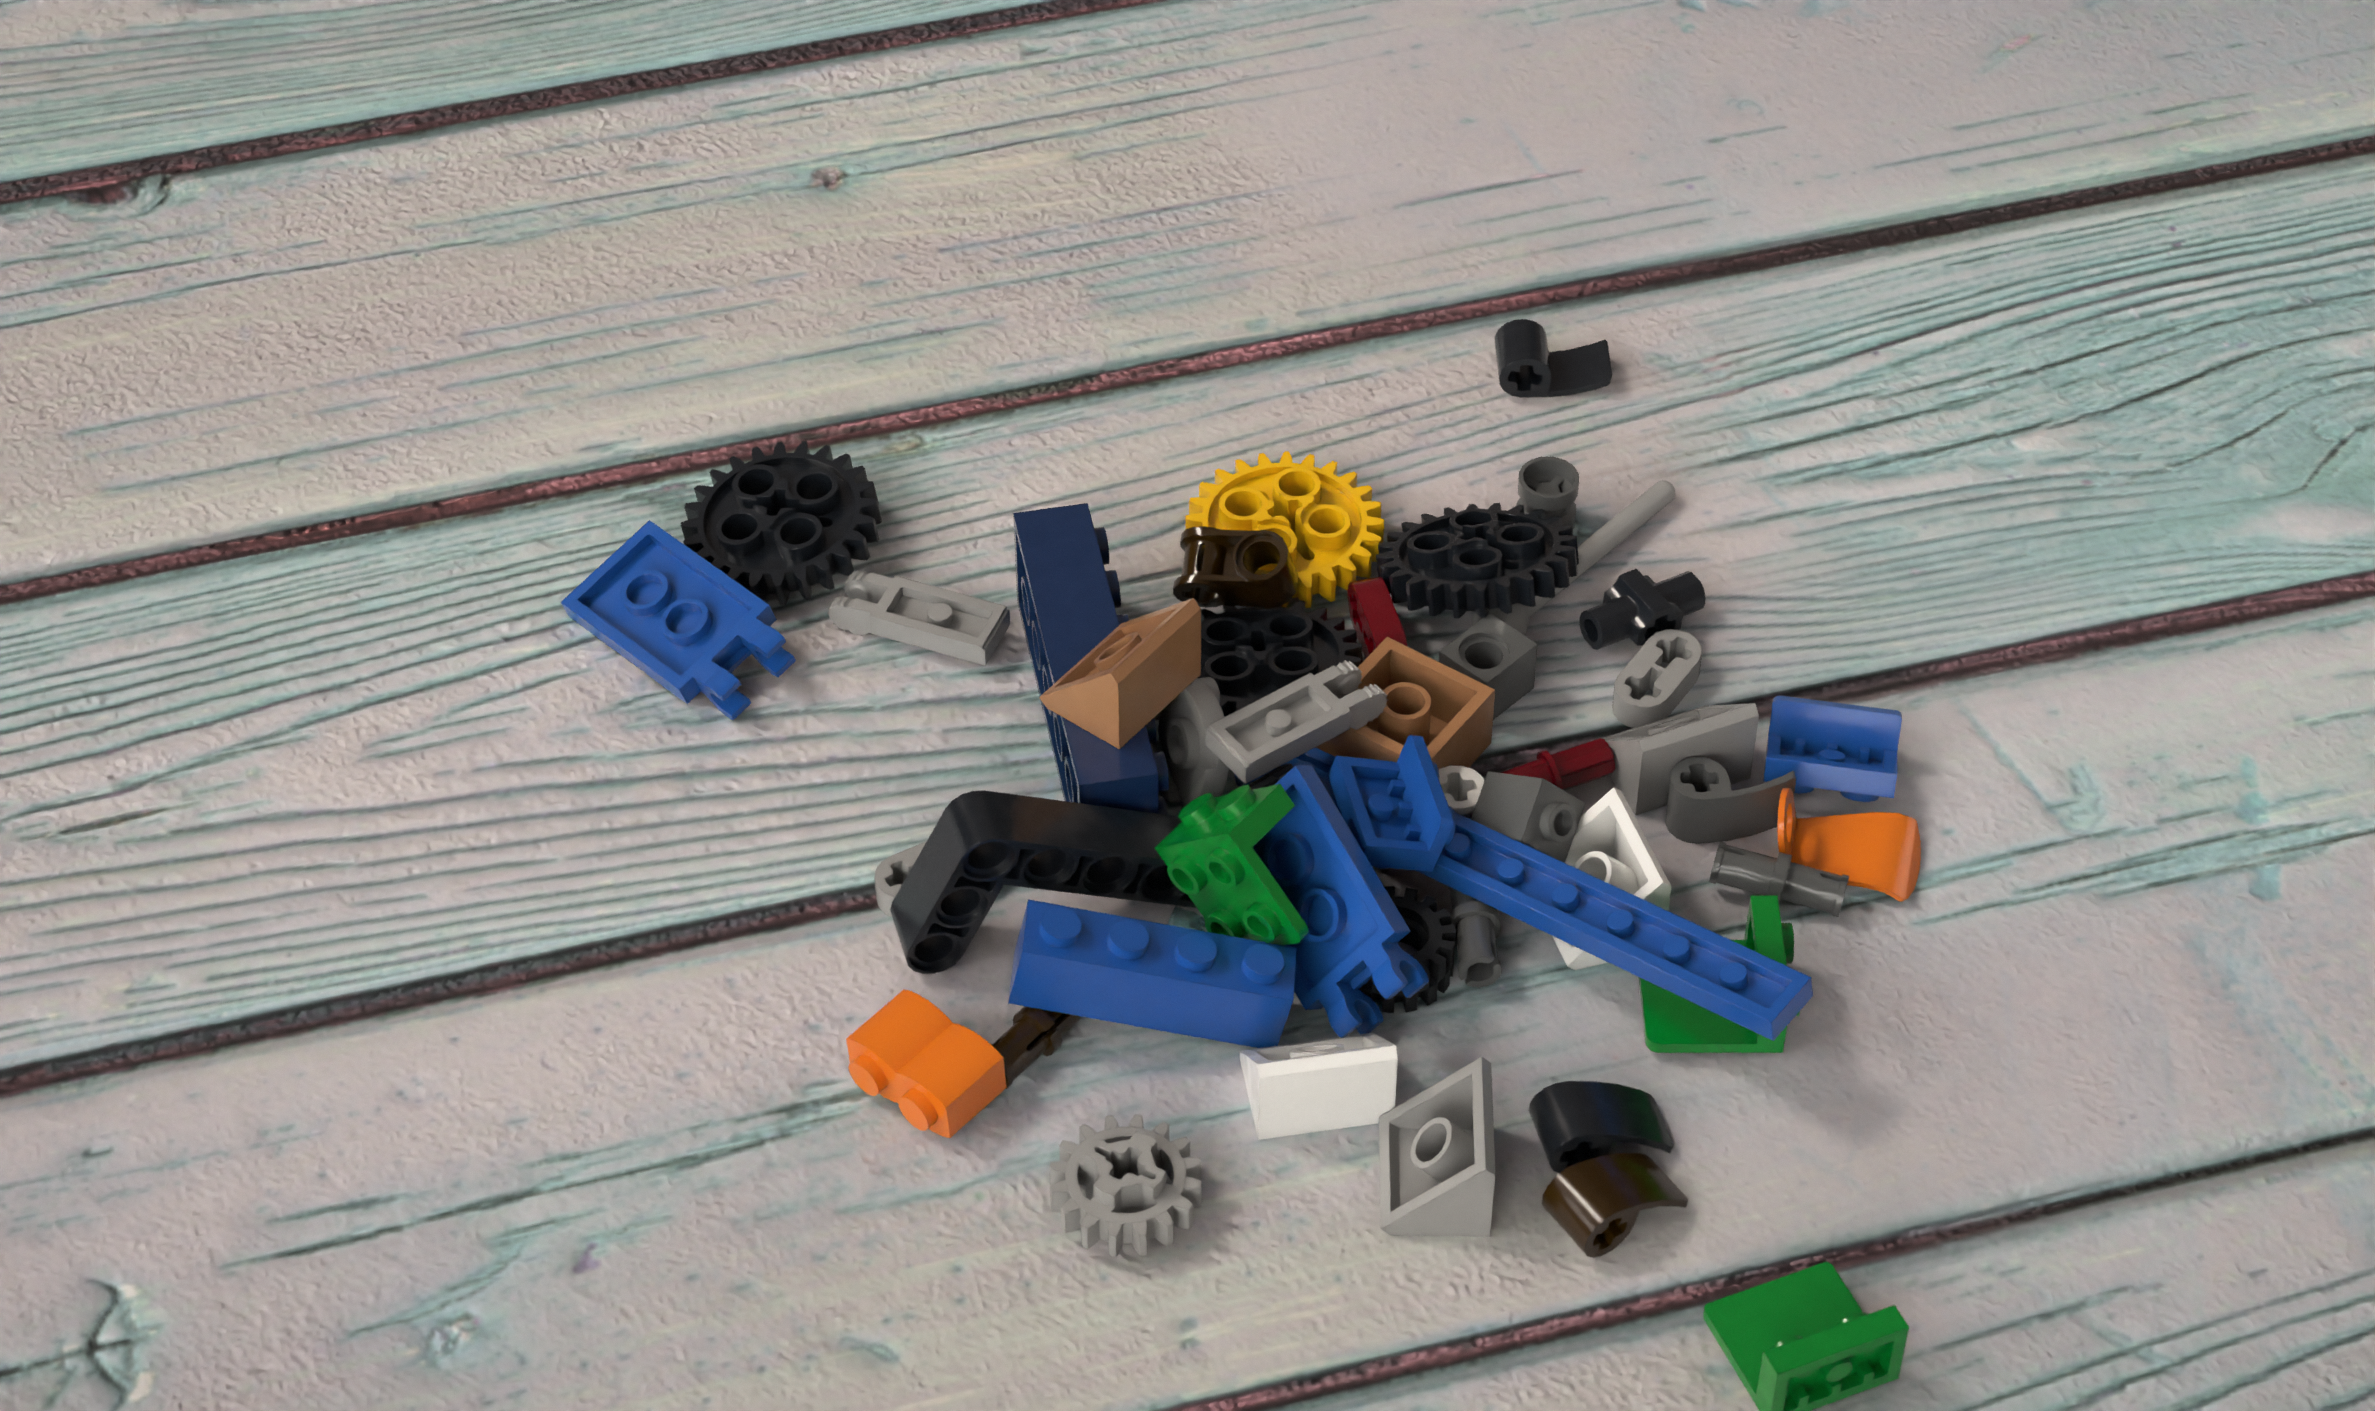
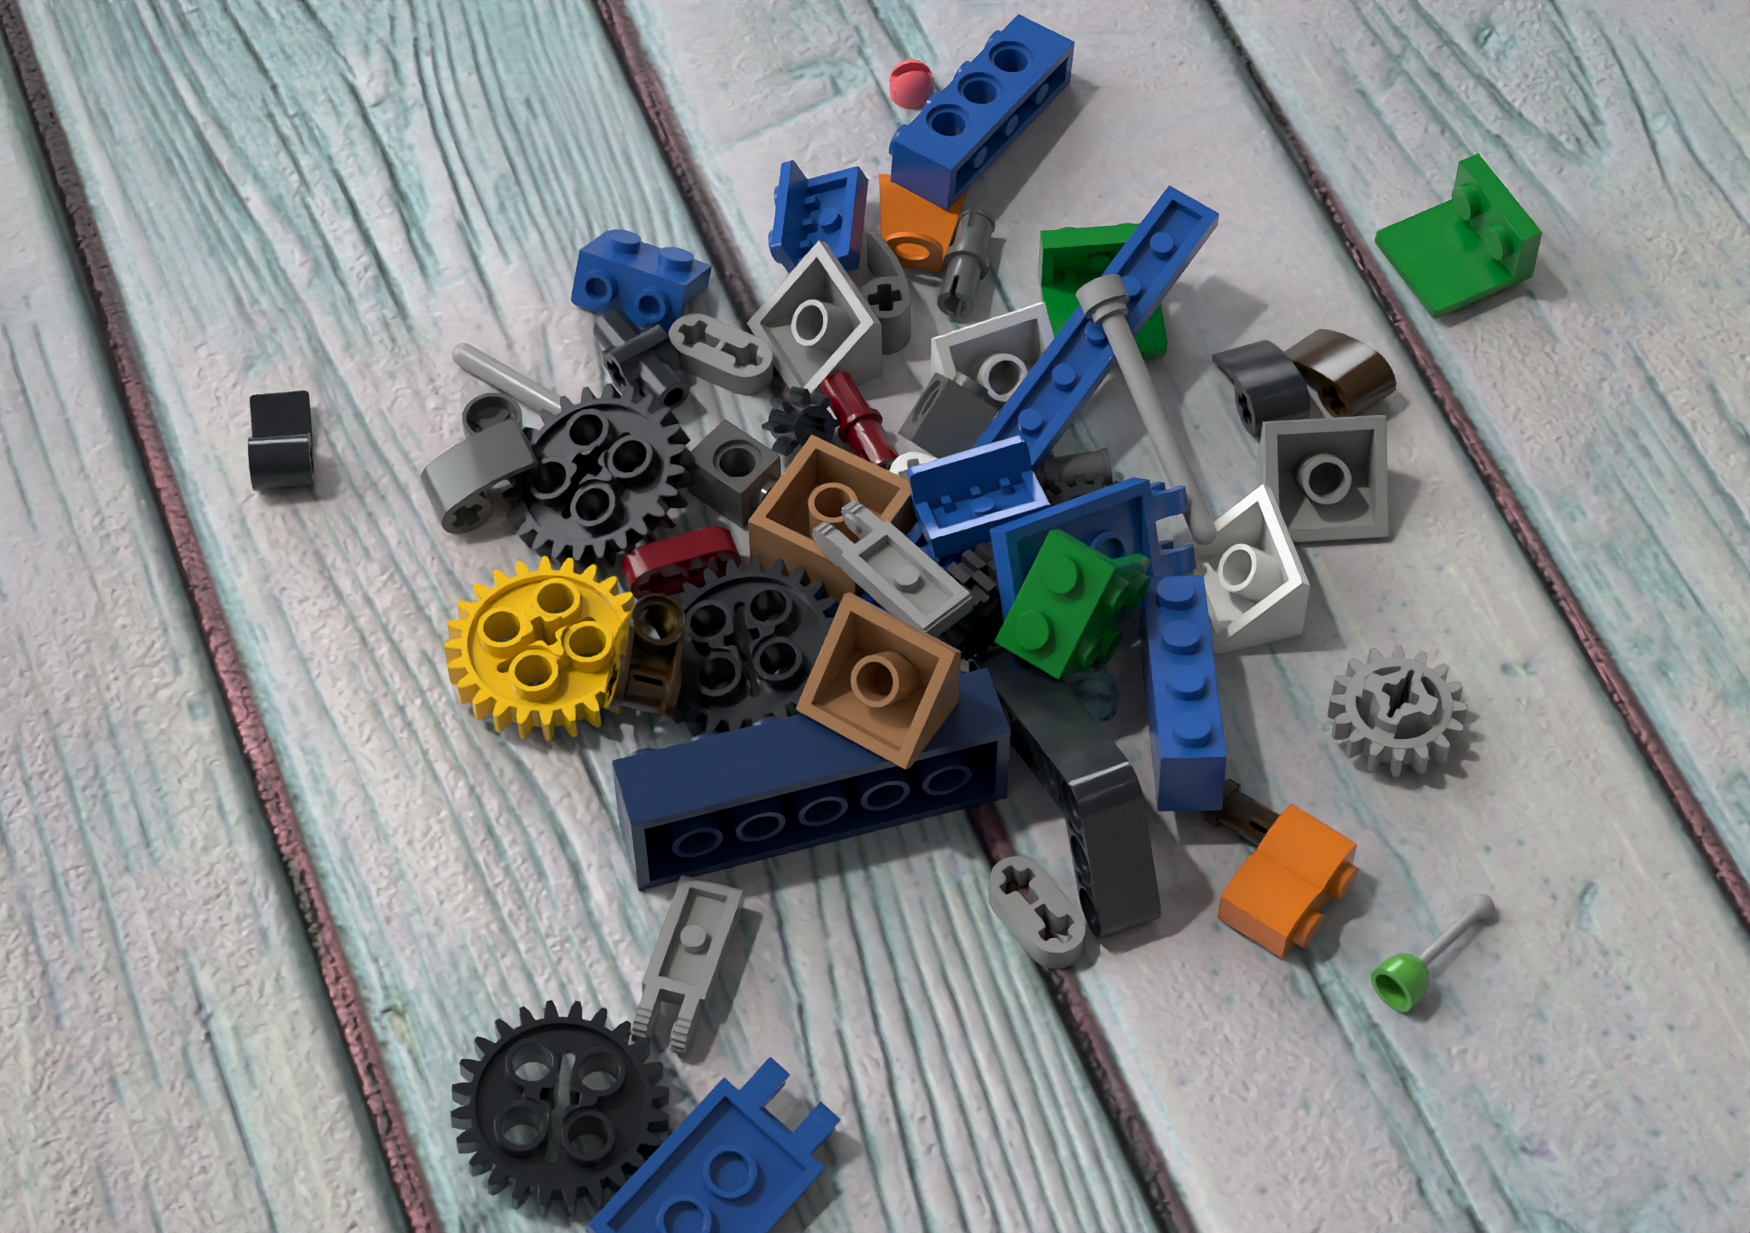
camera: 95 degrees left, 10 degrees up
(796, 1154) = (1405, 978): none -> bright green hinge
(1484, 474) = (463, 473): none -> dark grey panel
(1544, 718) = (798, 418): none -> black gear
(1632, 911) = (1105, 303): none -> light grey piece
(1758, 613) = (637, 278): none -> blue bracket
(1997, 897) = (981, 111): none -> blue brick
(2045, 864) = (911, 84): none -> coral hinge

